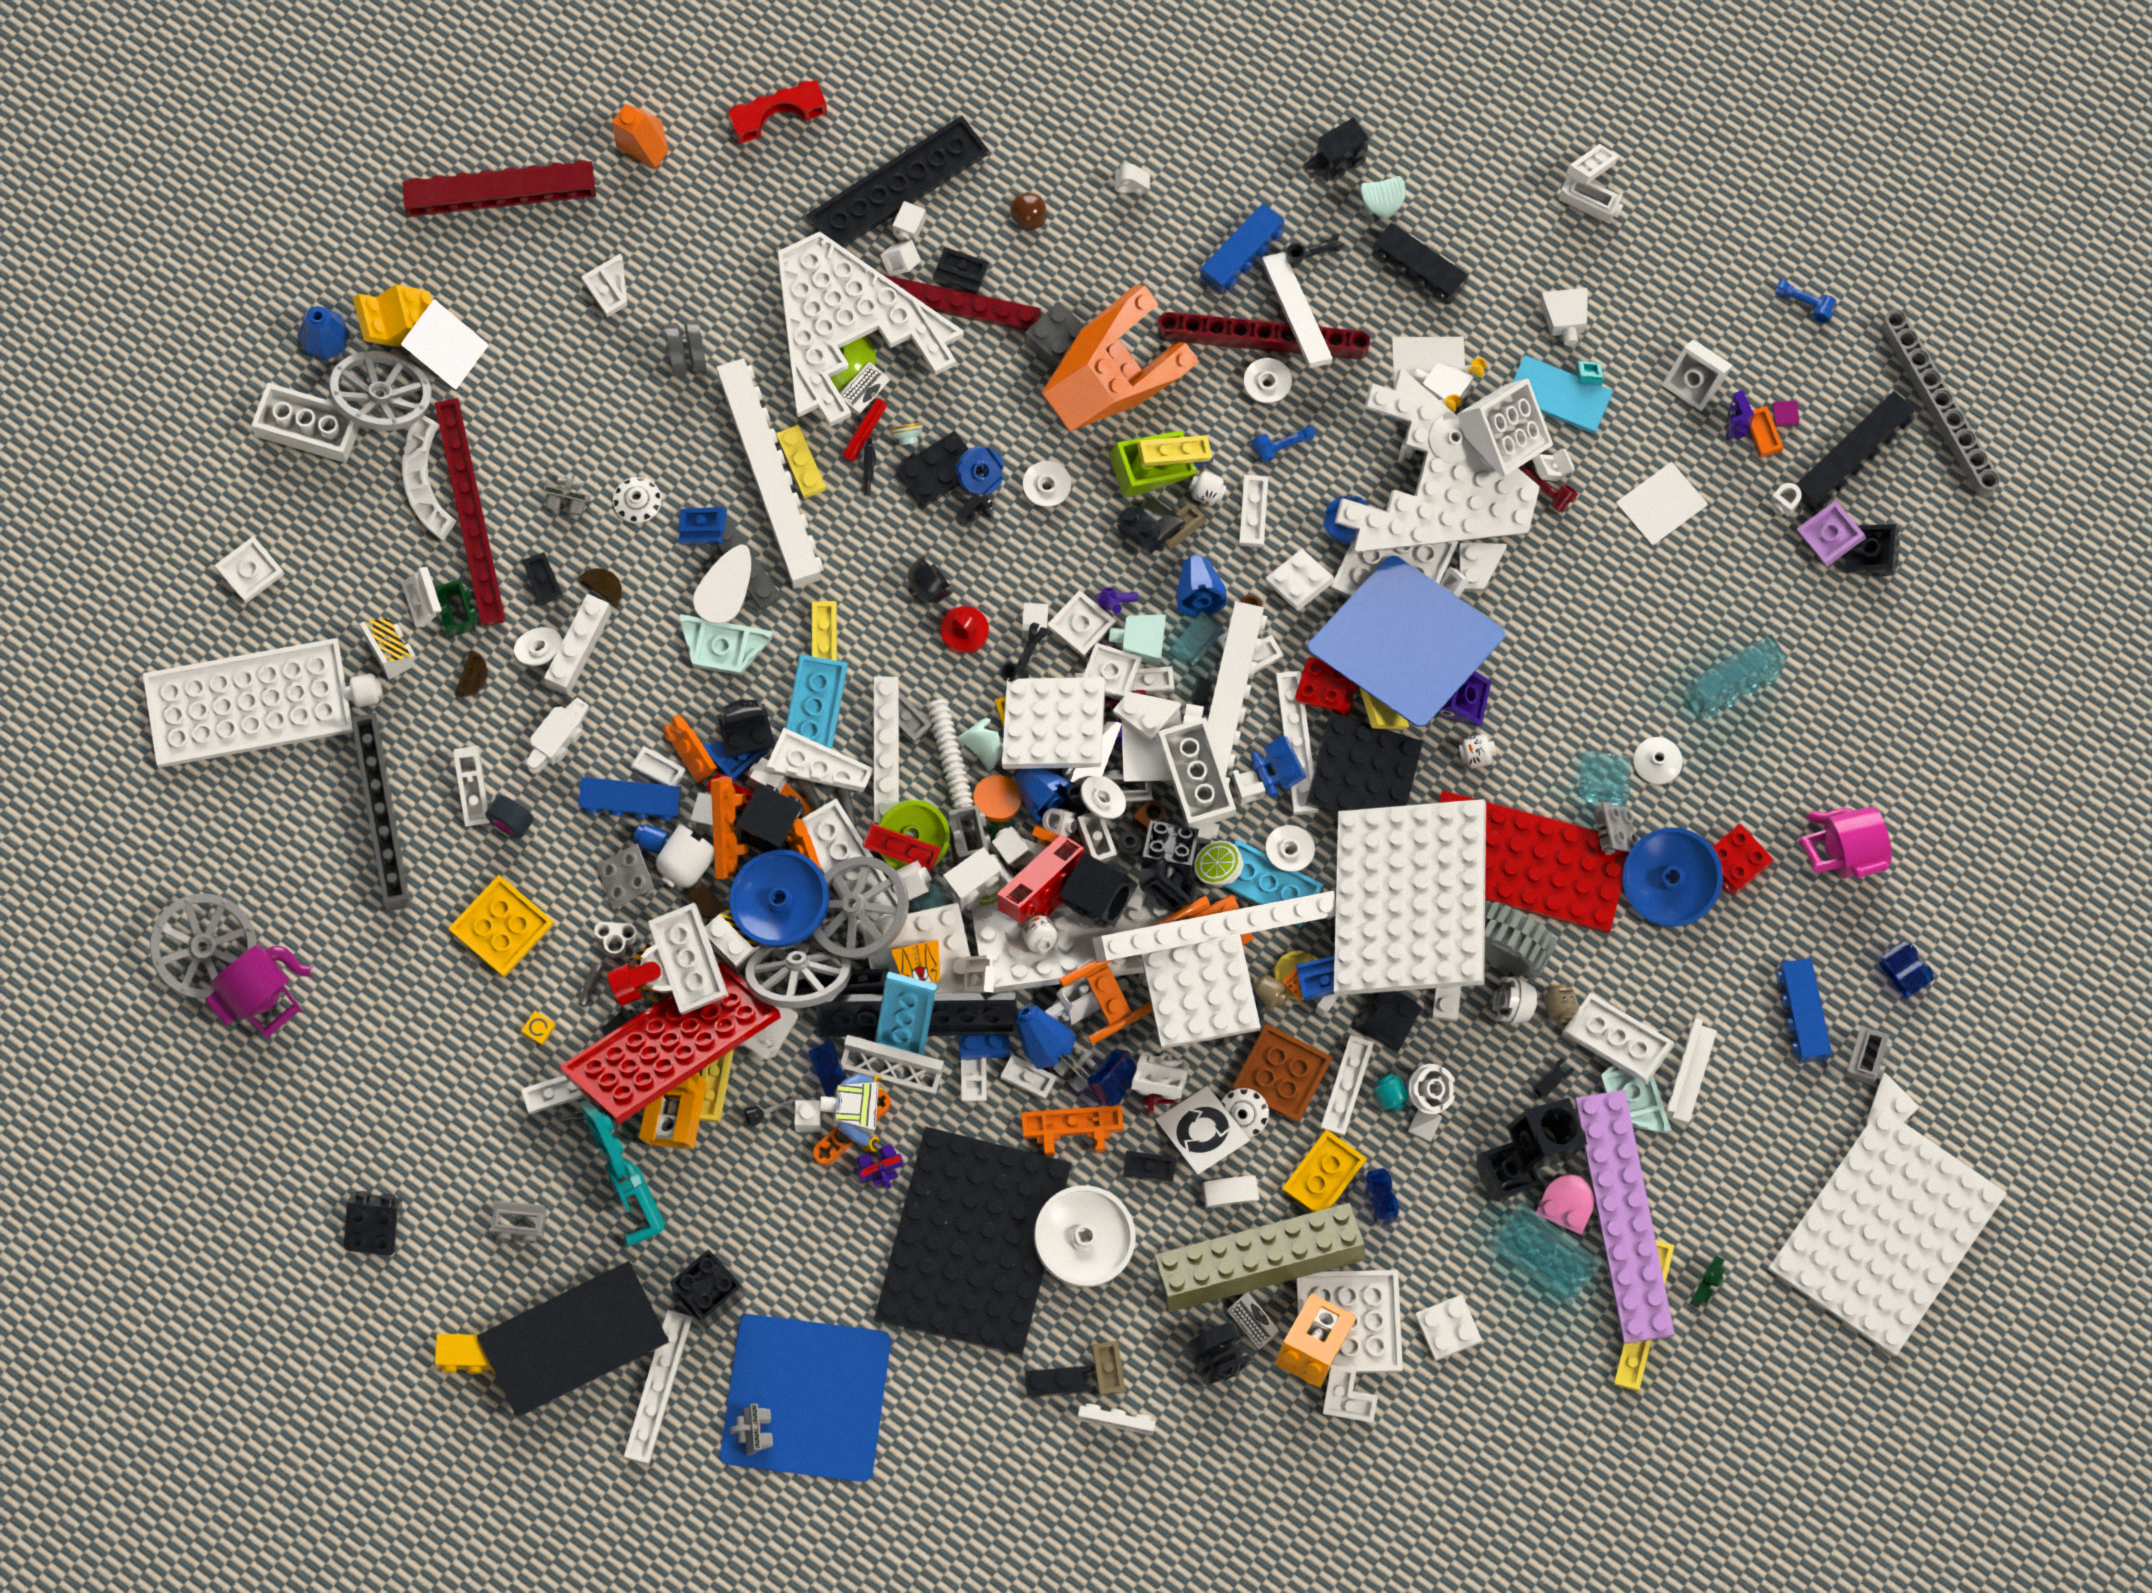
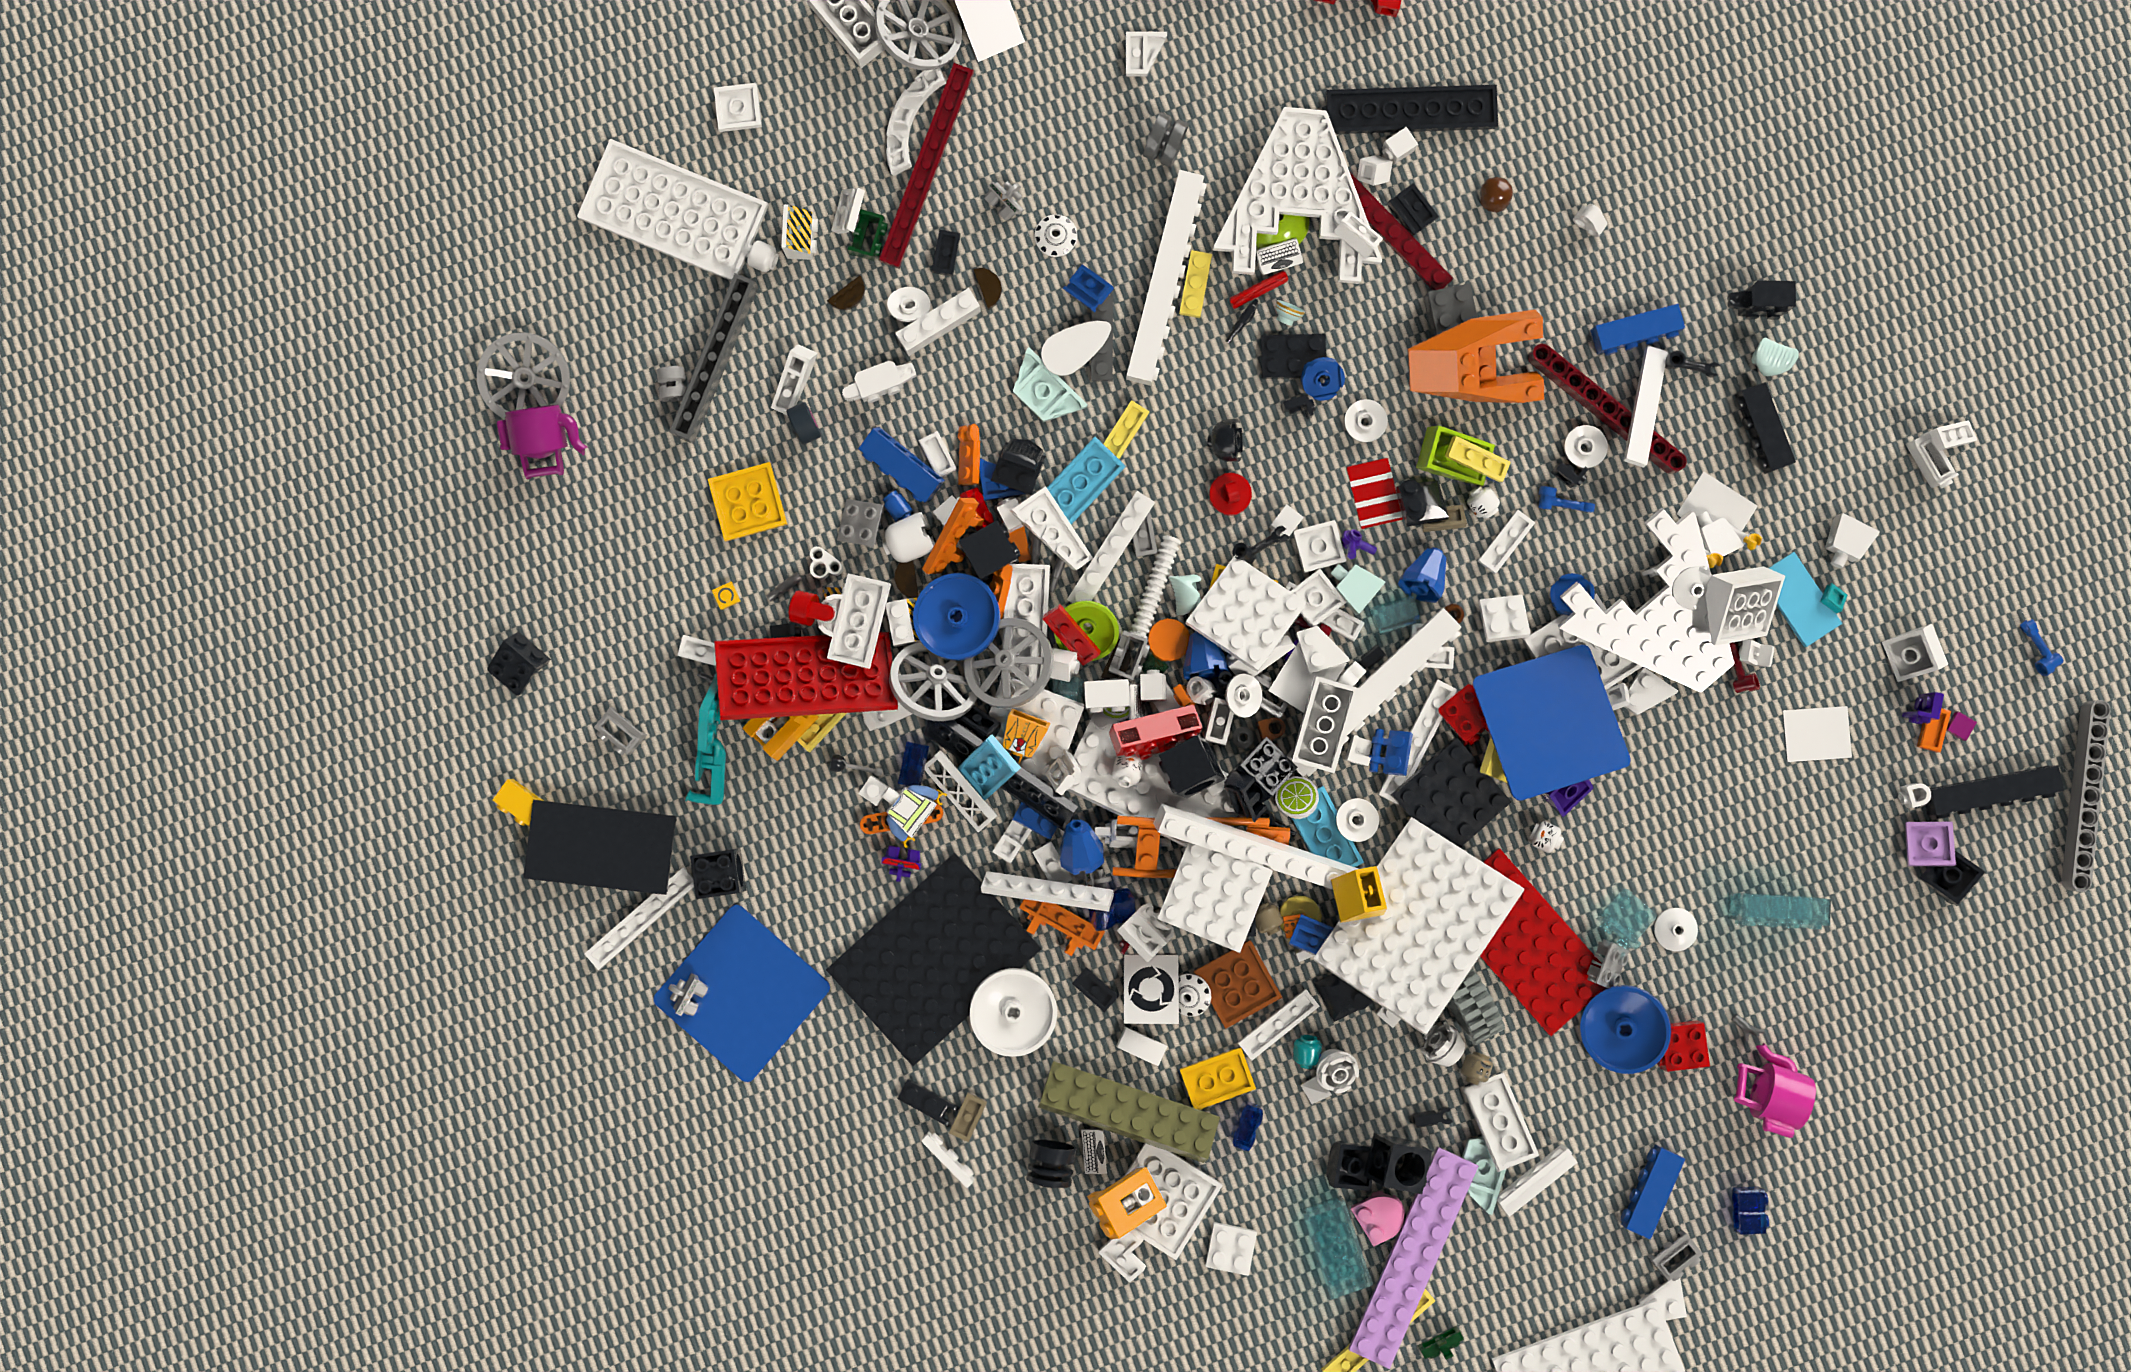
camera: 35 degrees right, 15 degrees up
(352, 859) = (671, 376): none -> light grey wheel
(925, 321) = (1358, 235): none -> white slope
(1039, 1099) = (1047, 891): none -> white plate
(1100, 545) = (1374, 493): none -> red sticker
(1269, 417) = (1566, 474): none -> black bracket
(1335, 902) = (1359, 894): none -> yellow slope
(1784, 806) = (1746, 1027): none -> dark grey bar

